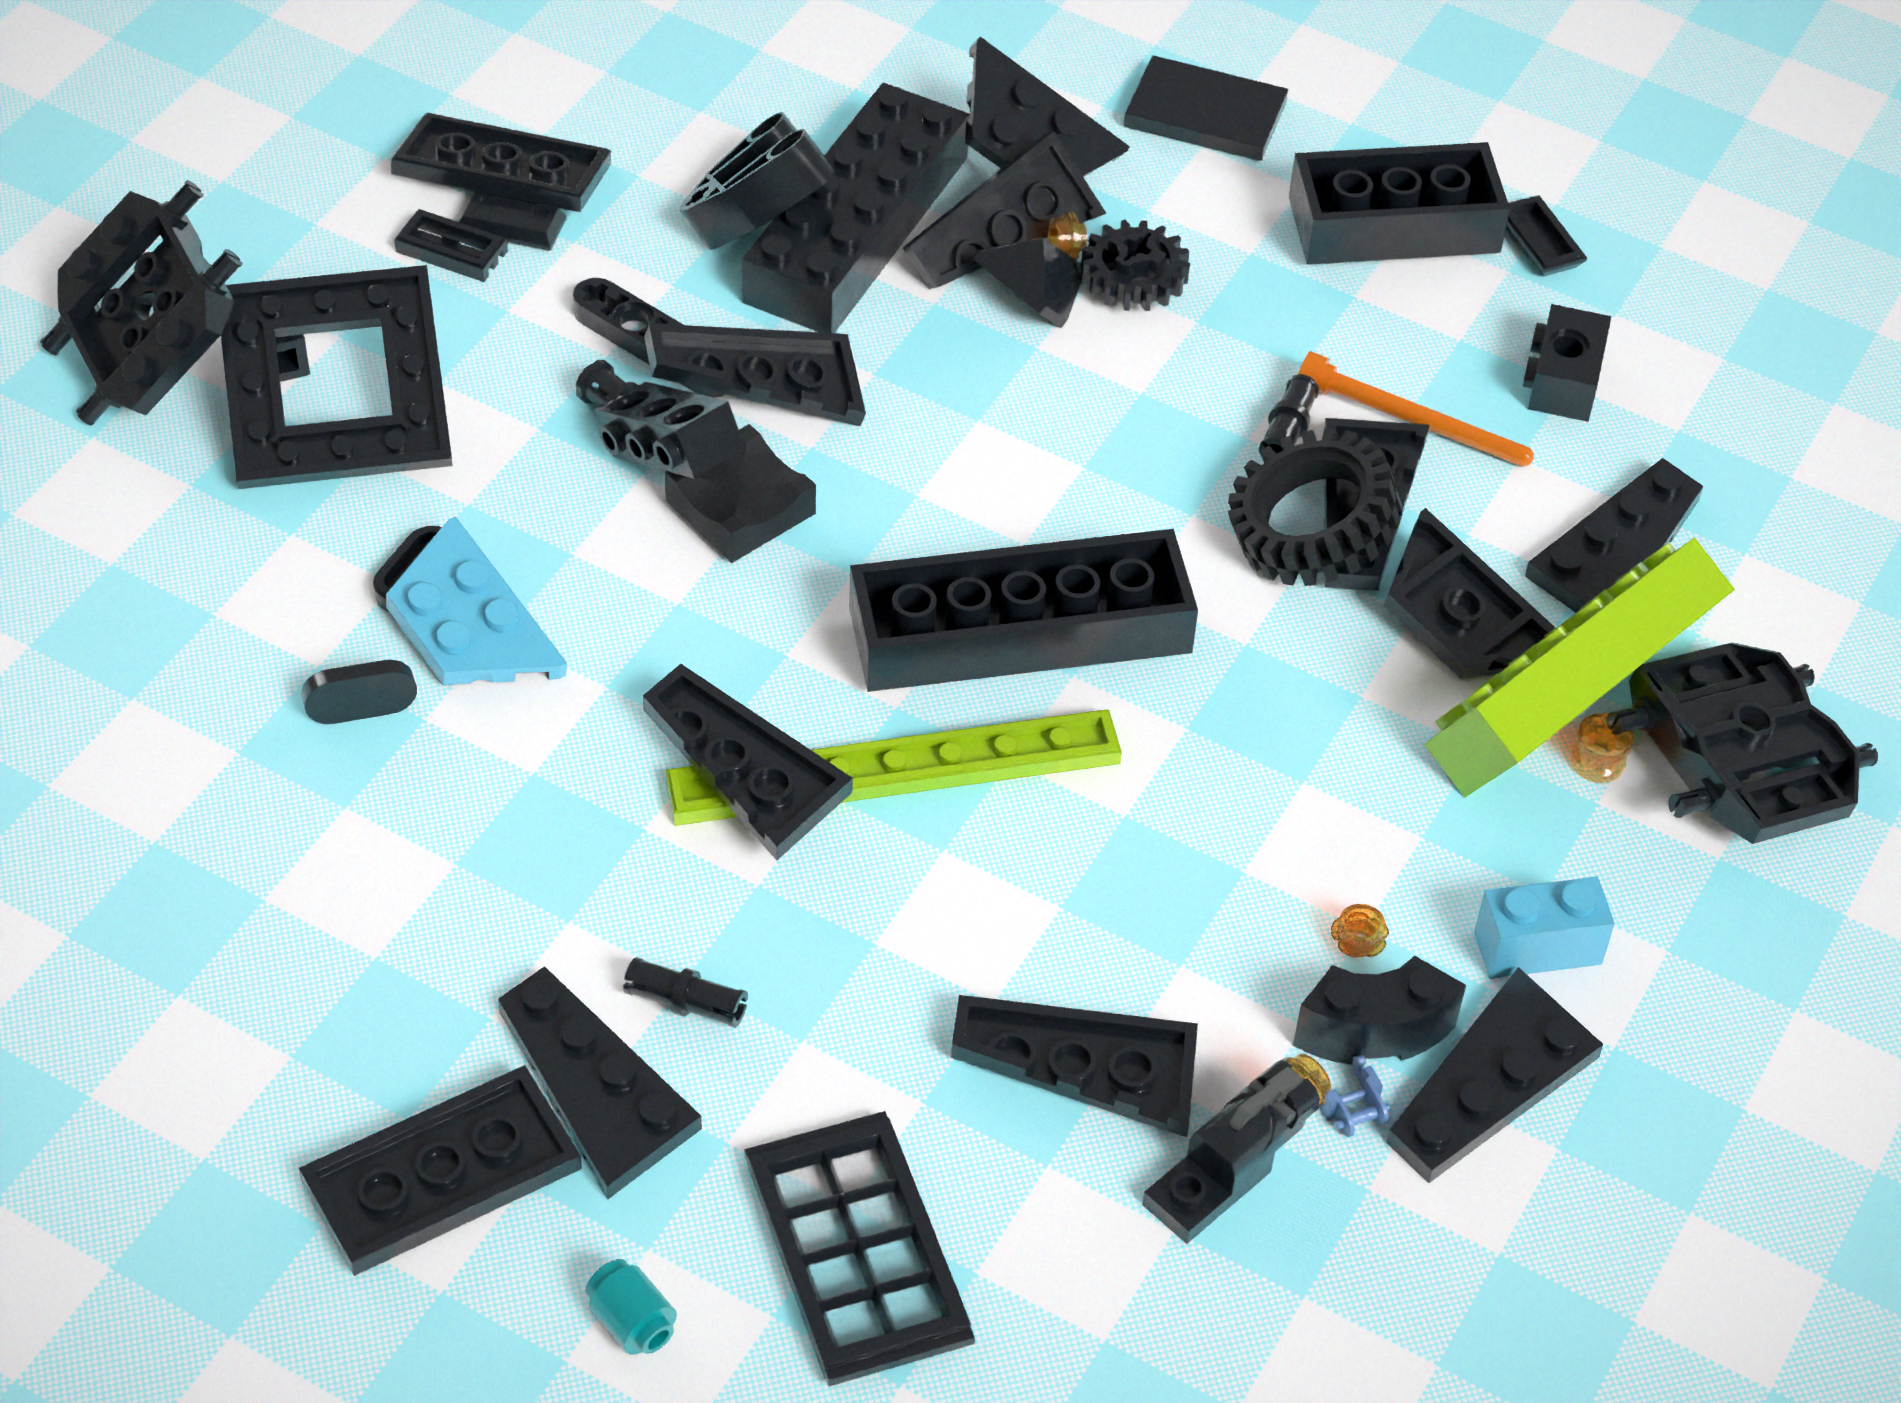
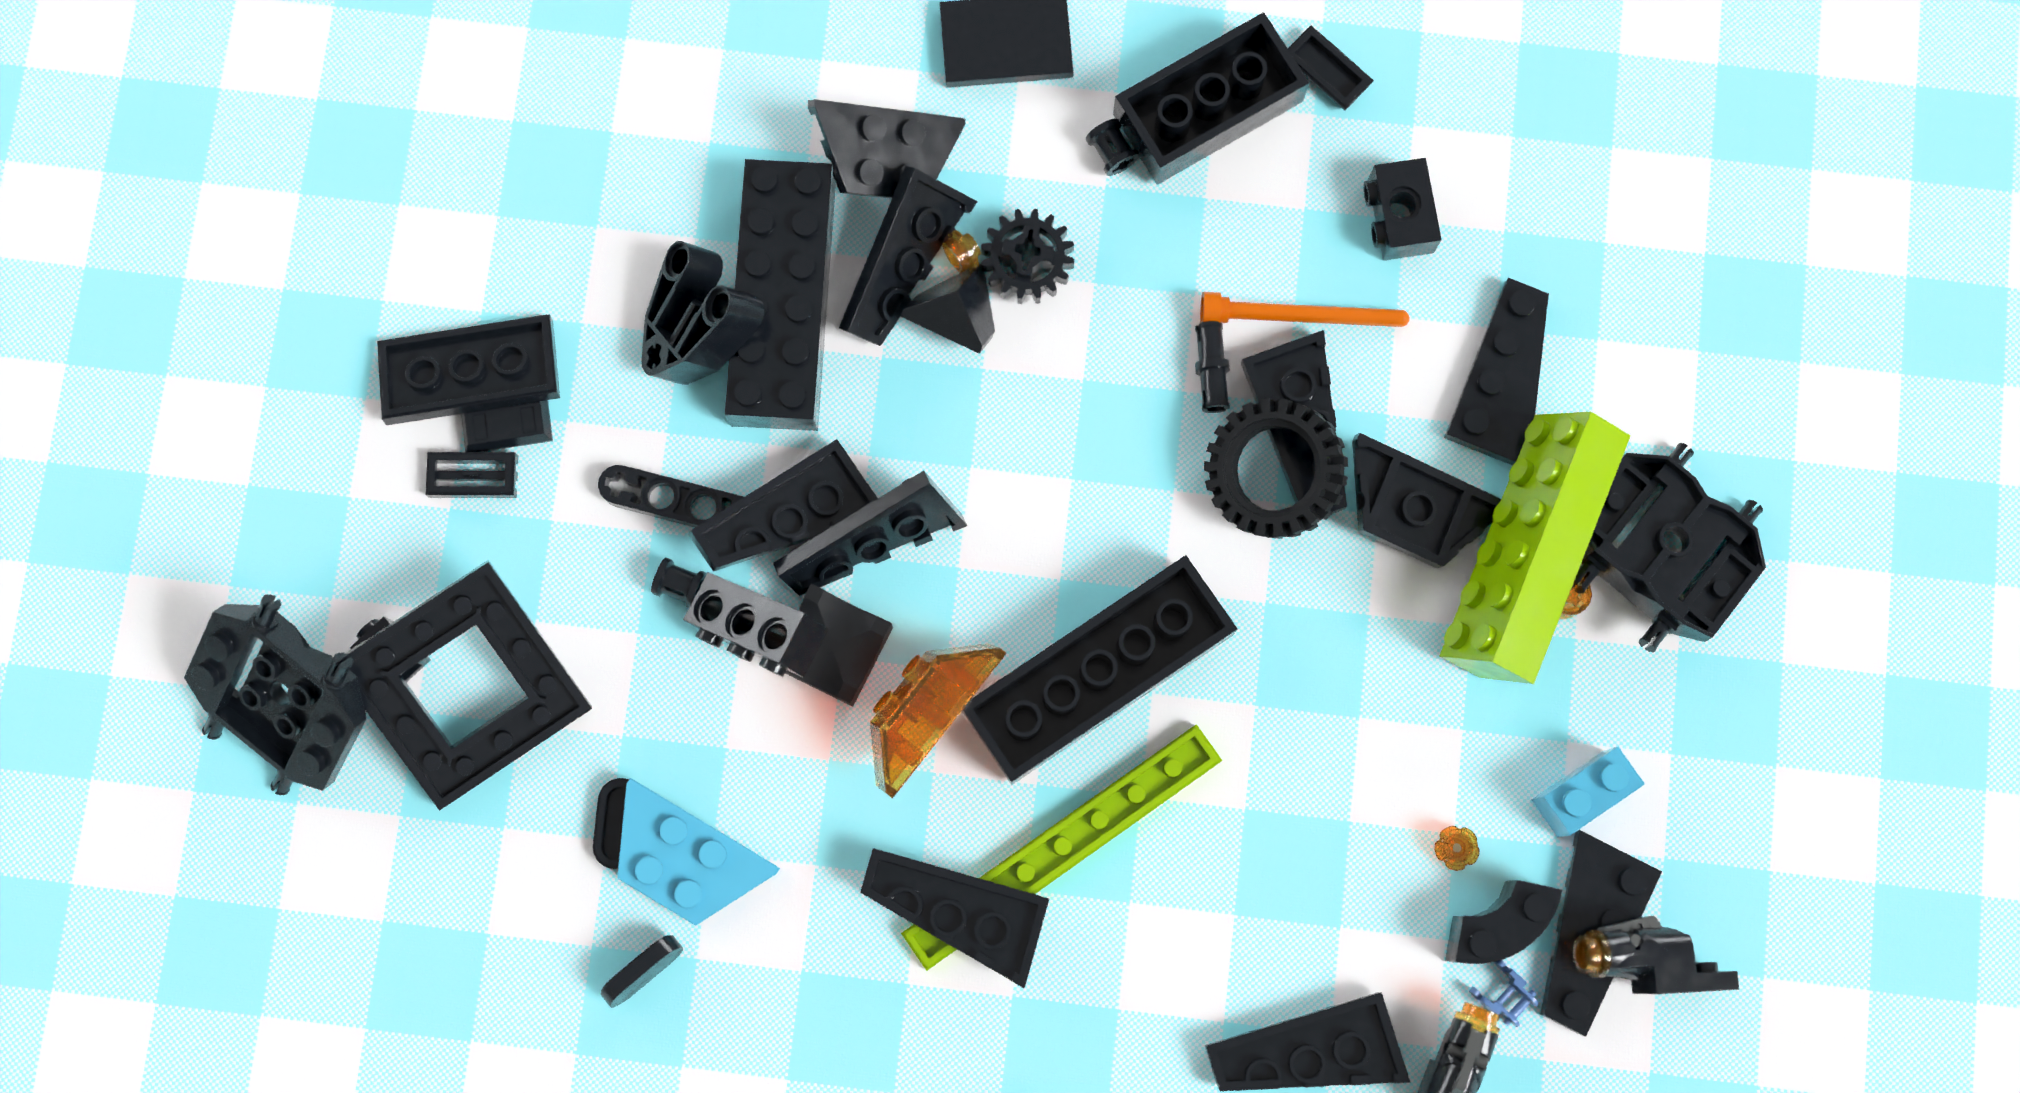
camera: 20 degrees left, 30 degrees up
(814, 549) = (924, 708): none -> clear orange wedge
(859, 411) = (869, 534): none -> black wing
(1286, 222) = (1110, 132): none -> black bush
(1554, 1106) = (1651, 957): none -> black plate

